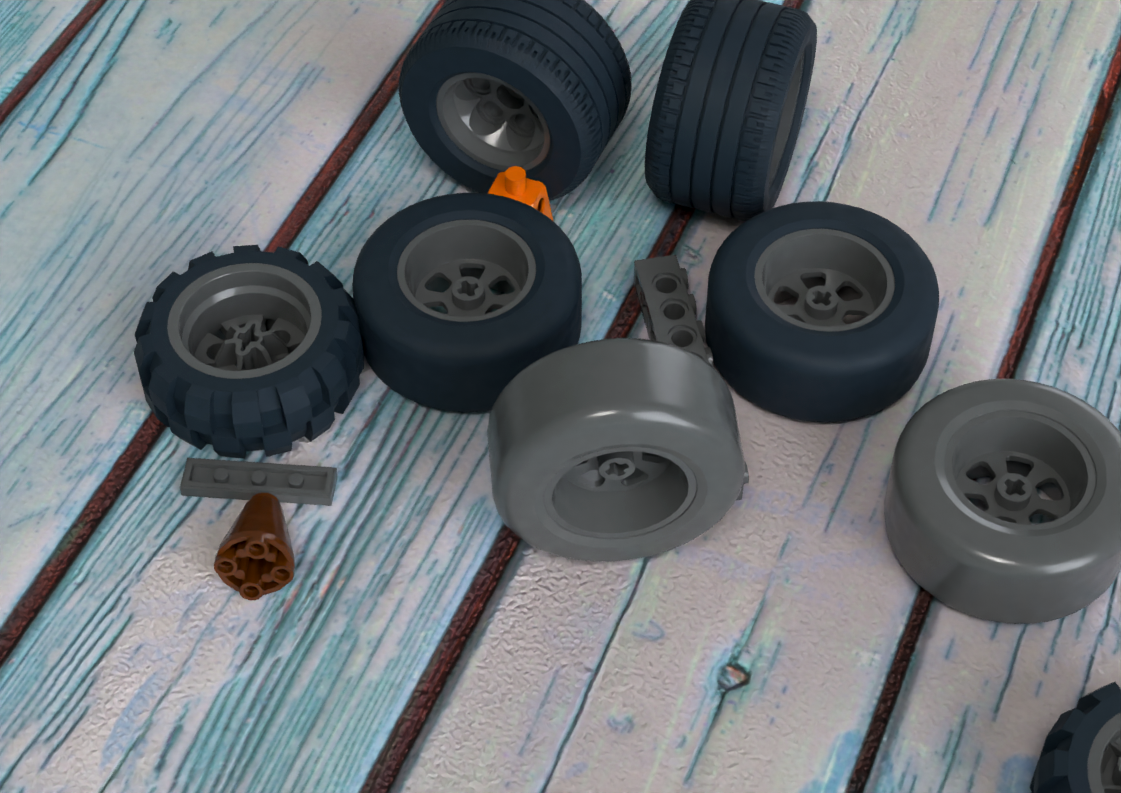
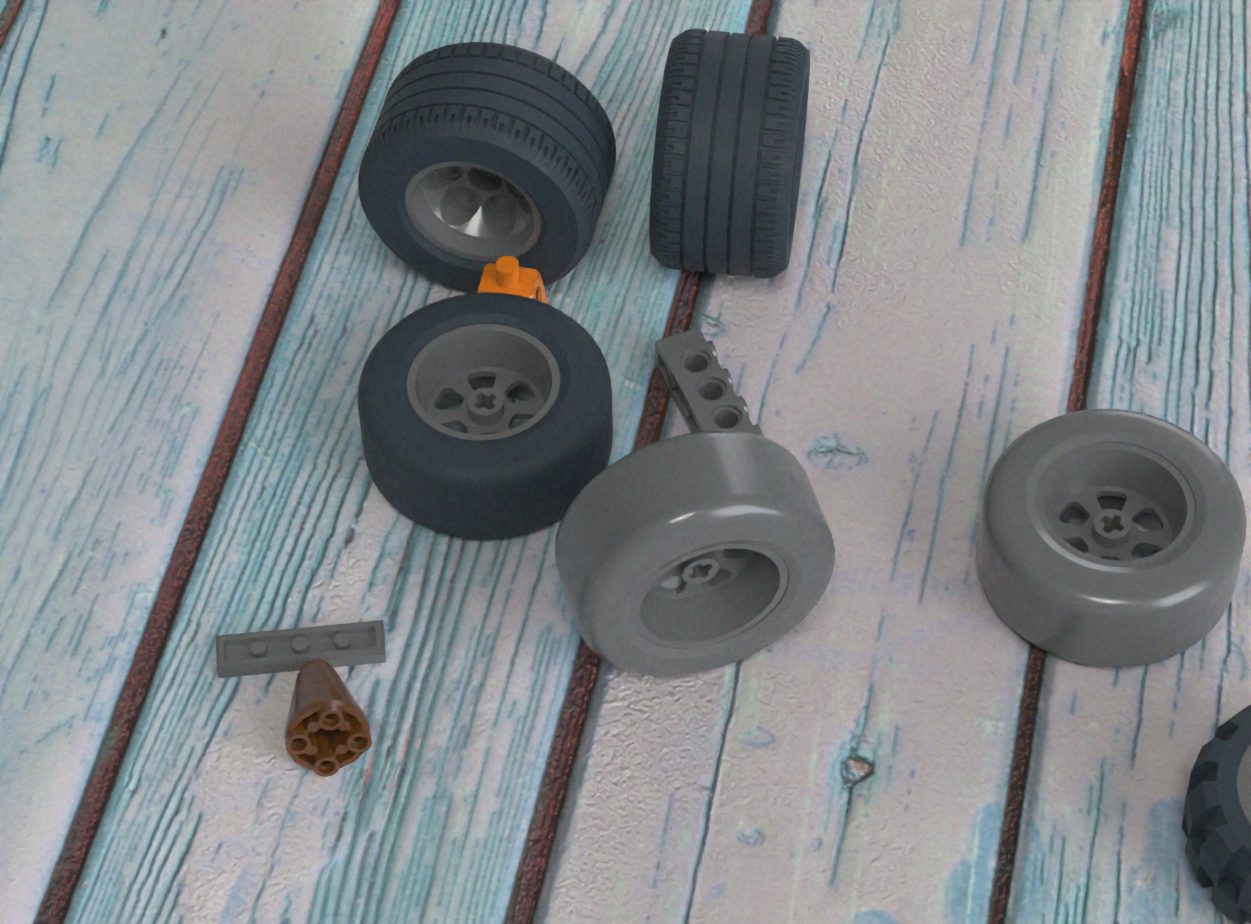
camera: 10 degrees left, 0 degrees up
(275, 318) = (233, 452): black wheel -> none
(803, 355) = (879, 312): black wheel -> none

